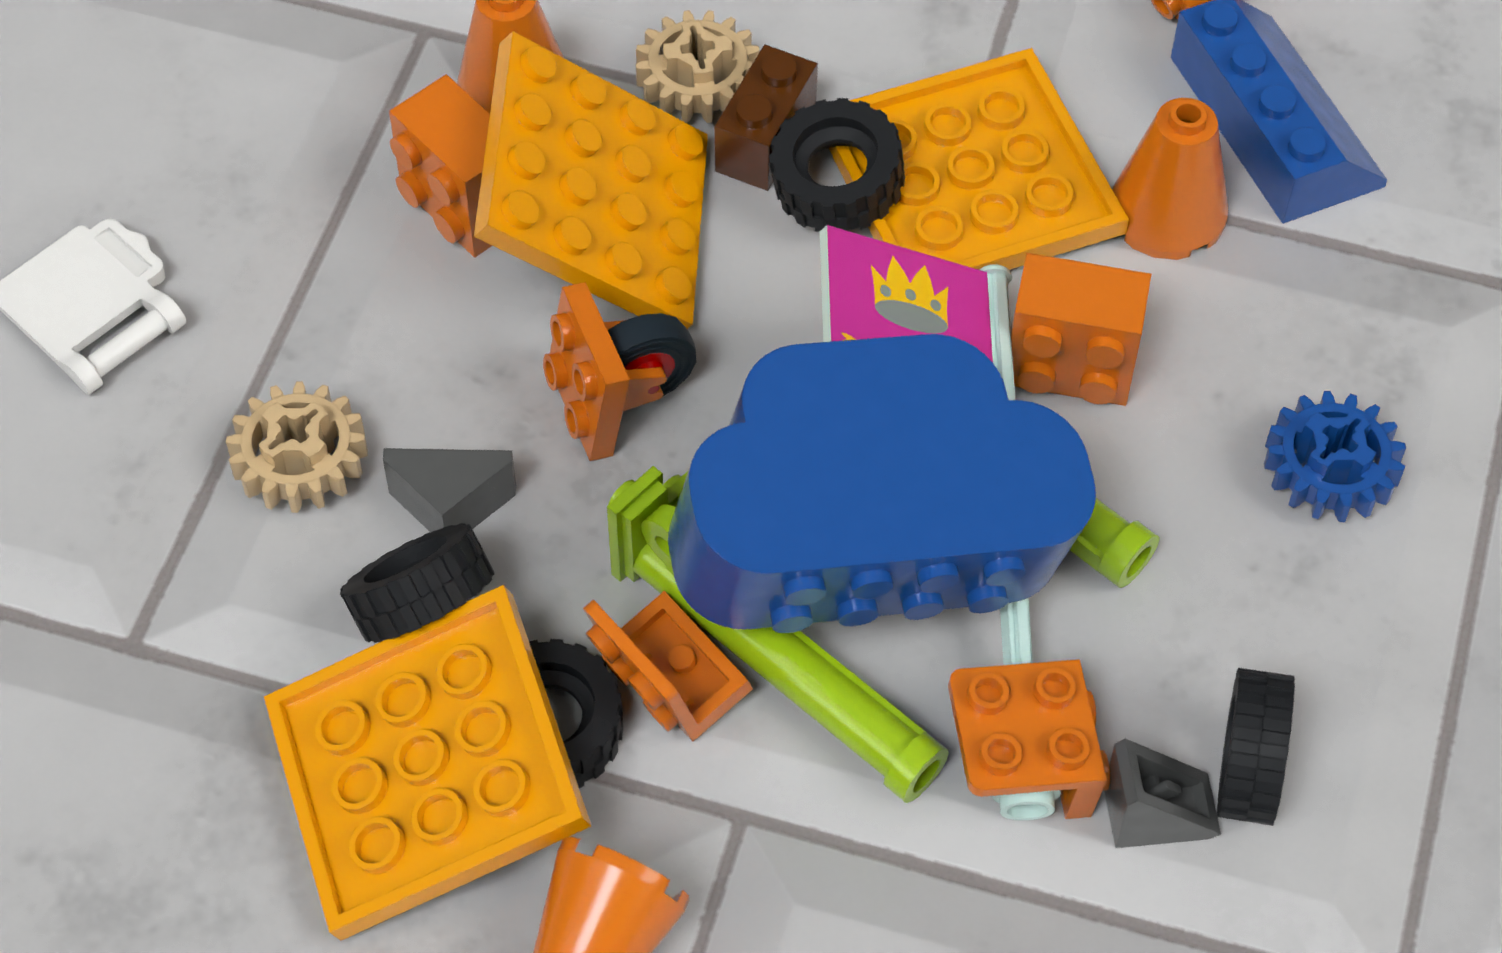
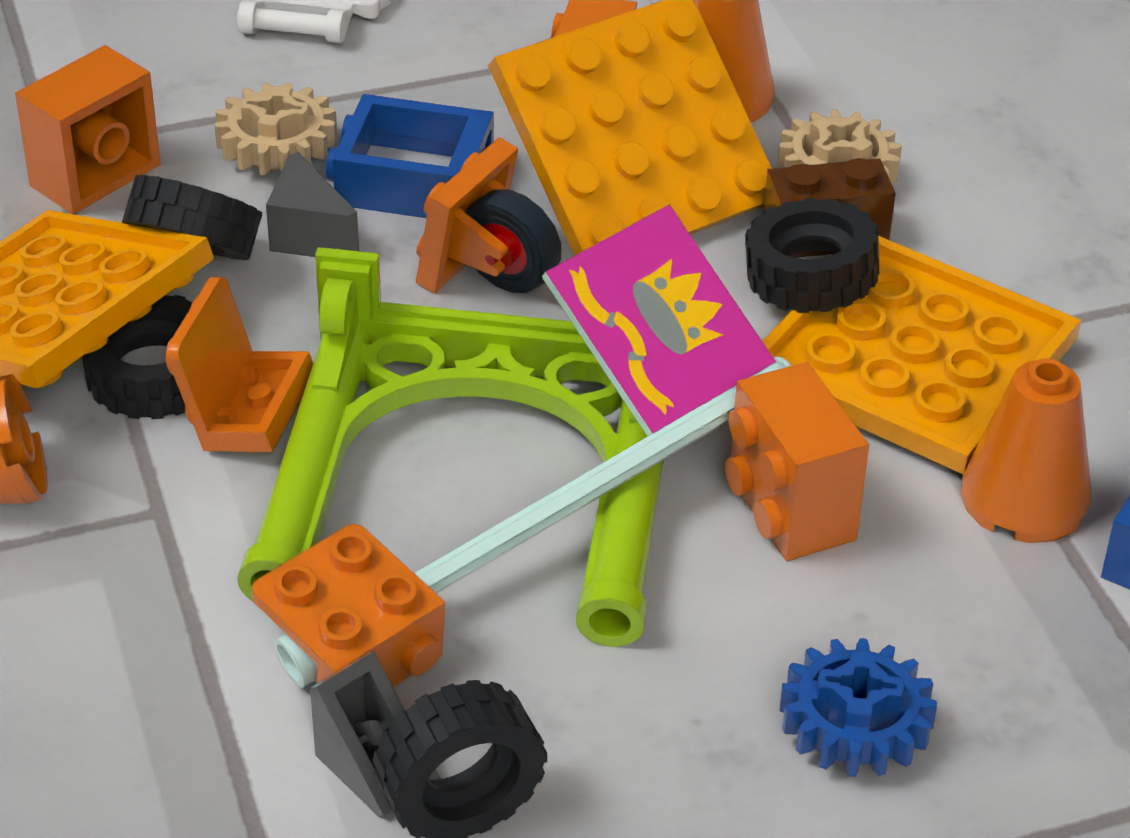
camera: 55 degrees right, 15 degrees down
(193, 598) = (88, 128): none -> orange brick
(448, 301) = (406, 125): none -> blue window
(876, 489) = (449, 358): blue brick -> none

